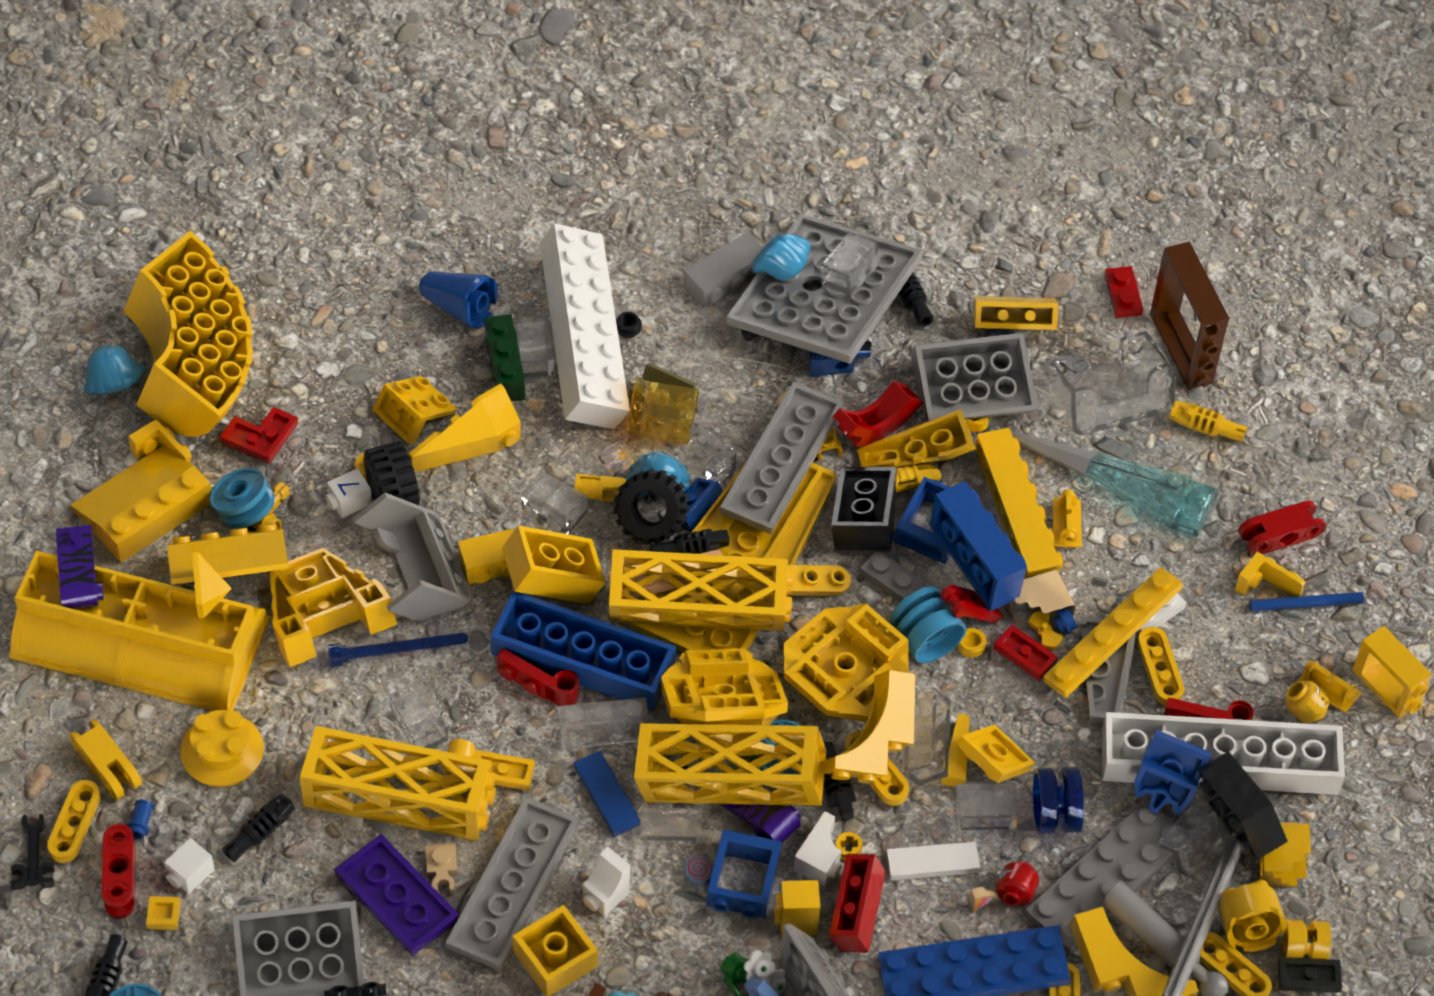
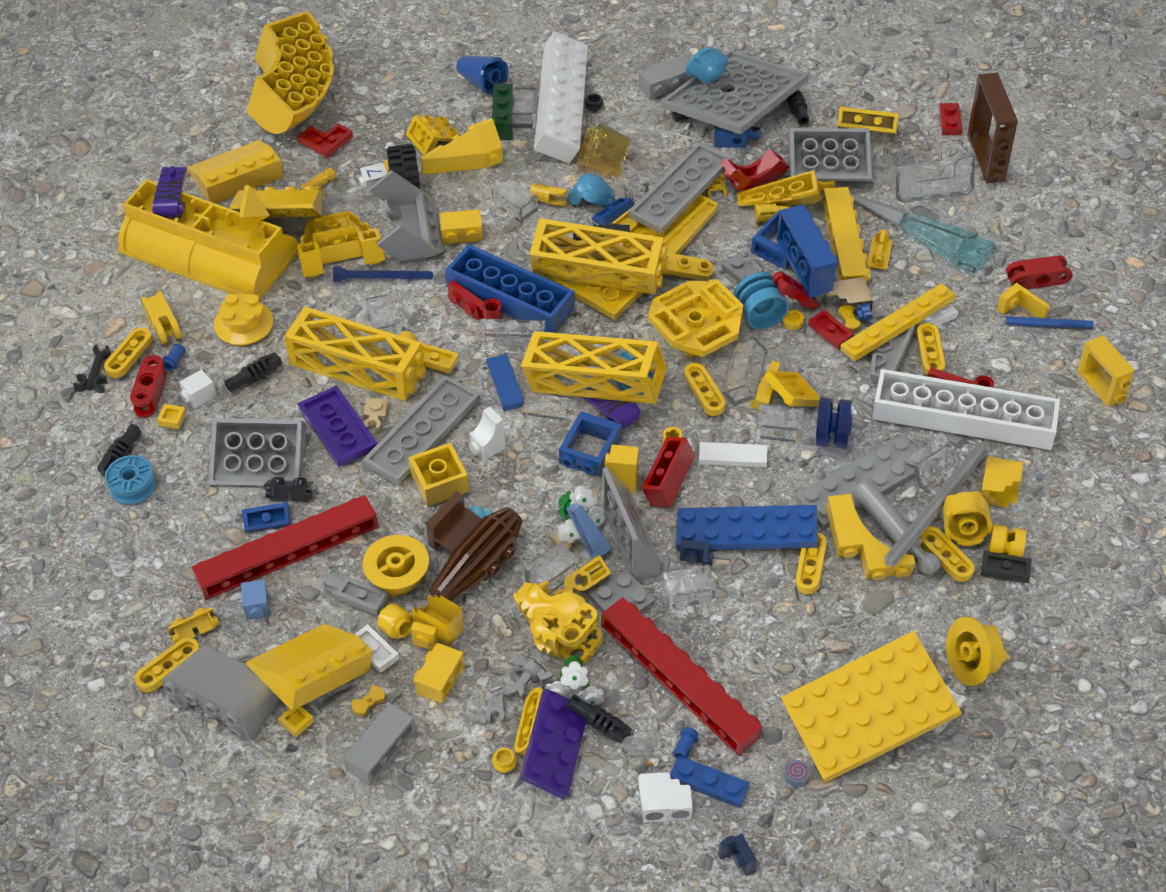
camera: 15 degrees right, 5 degrees down
(111, 370) = (234, 89): dark azure hair -> none
(153, 435) = (252, 132): yellow bracket -> none
(242, 498) = (300, 171): dark azure wheel -> none
(553, 565) = (500, 231): yellow brick -> none
(631, 518) = (569, 192): black tyre -> none
(698, 870) = (556, 438): sand blue tile -> none
(722, 689) = (601, 318): yellow piece -> none
(818, 856) = (648, 436): white arch -> none
(839, 792) = (673, 394): black hinge -> none
(850, 263) = (754, 74): clear brick -> none
(864, 508) = (732, 226): black slope -> none
(886, 730) = (715, 360): yellow arch -> none
(982, 899) = (764, 483): tan tile -> none
(1017, 882) = (792, 476): red head -> none
(1169, 772) = (920, 412): blue plate -> none
(1206, 421) = (995, 201): yellow hinge -> none
(1242, 806) = (971, 440): black brick -> none
(1306, 702) = (1037, 382): yellow head -> none
(1338, 691) = (1056, 378): yellow hinge -> none

